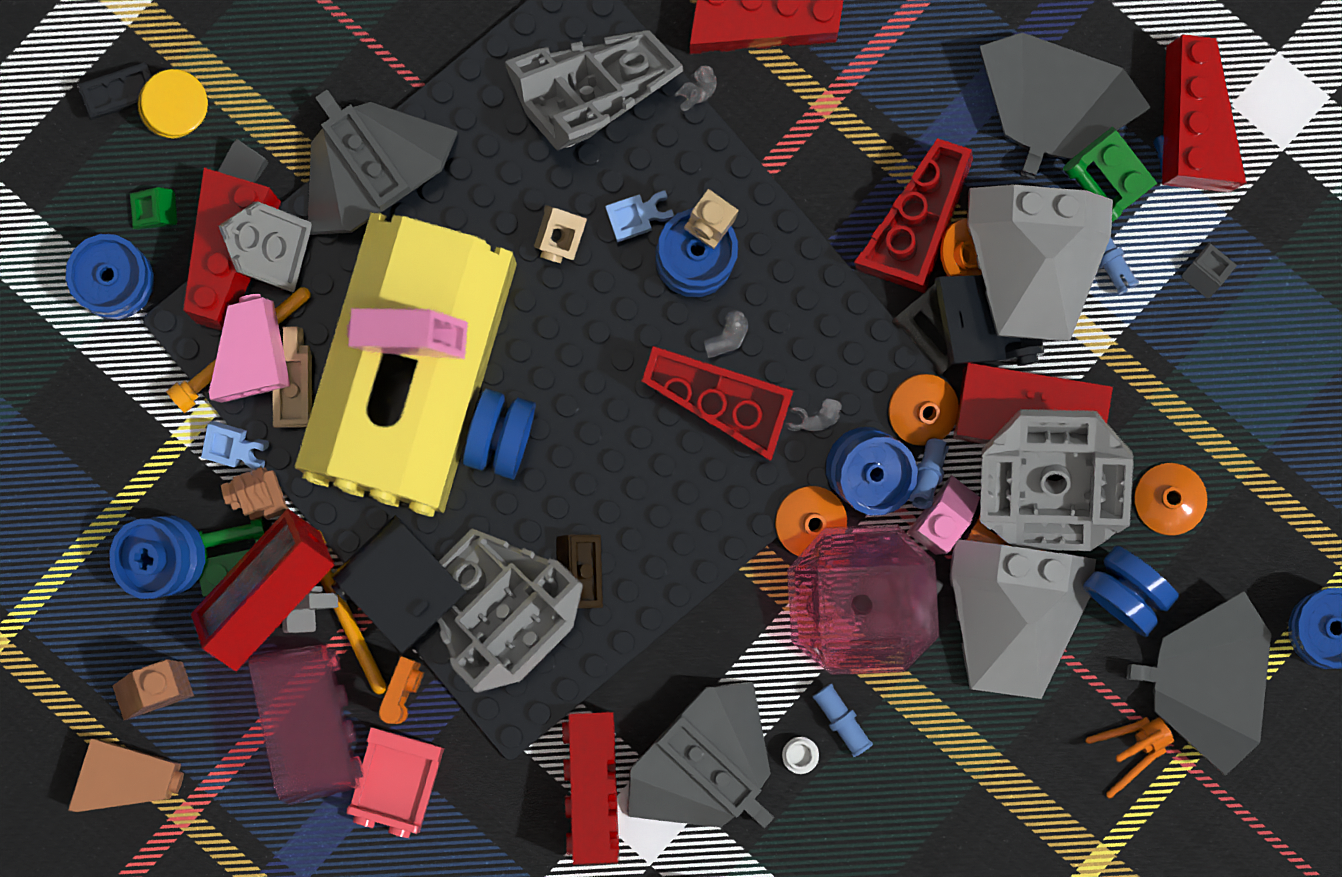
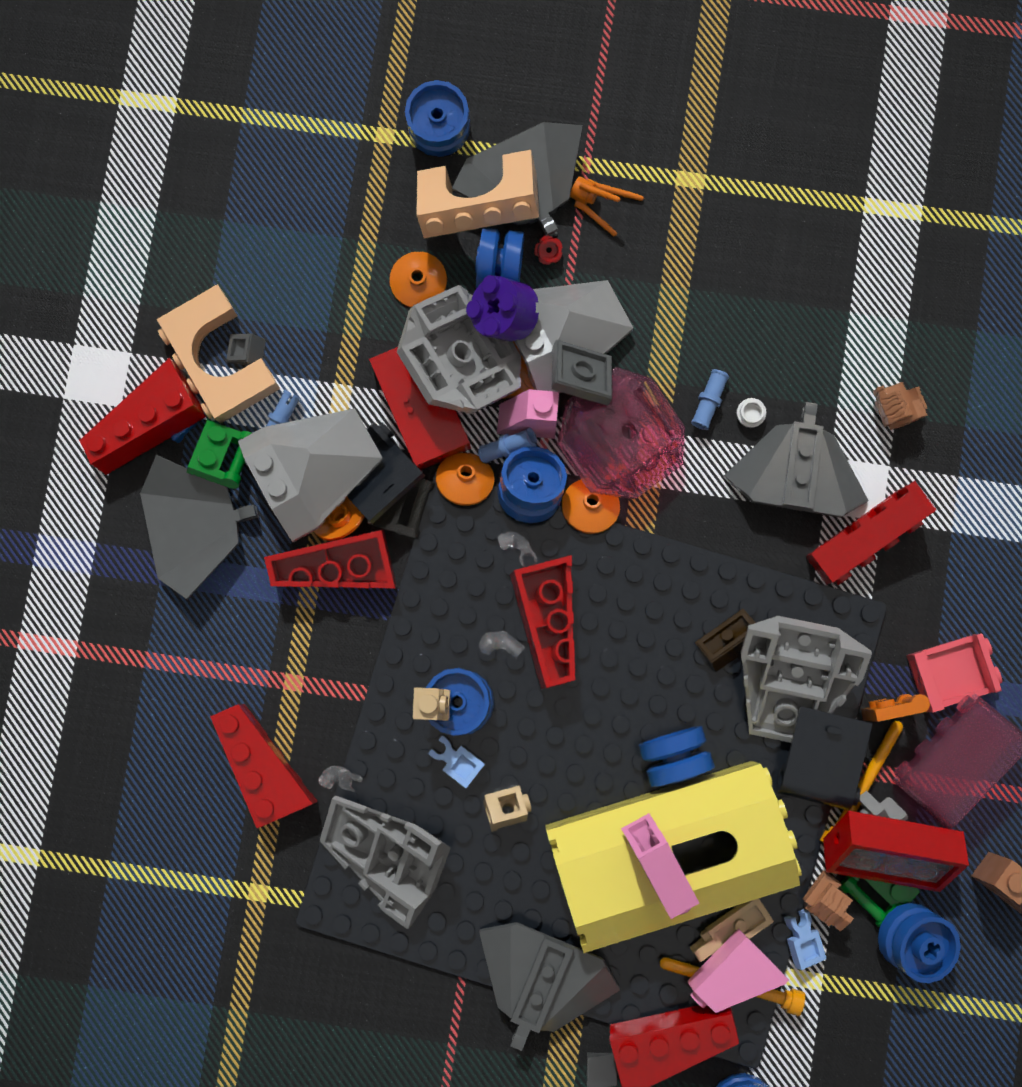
camera: 120 degrees left, 0 degrees up
(267, 244) = (651, 1014): light grey tile -> none
(953, 591) = (581, 372): none -> dark grey plate
(1072, 553) = (503, 309): none -> dark purple brick
(1104, 654) = (556, 250): none -> red plate
(1186, 638) = (508, 202): none -> light nougat arch
(1267, 216) = (185, 331): none -> light nougat arch

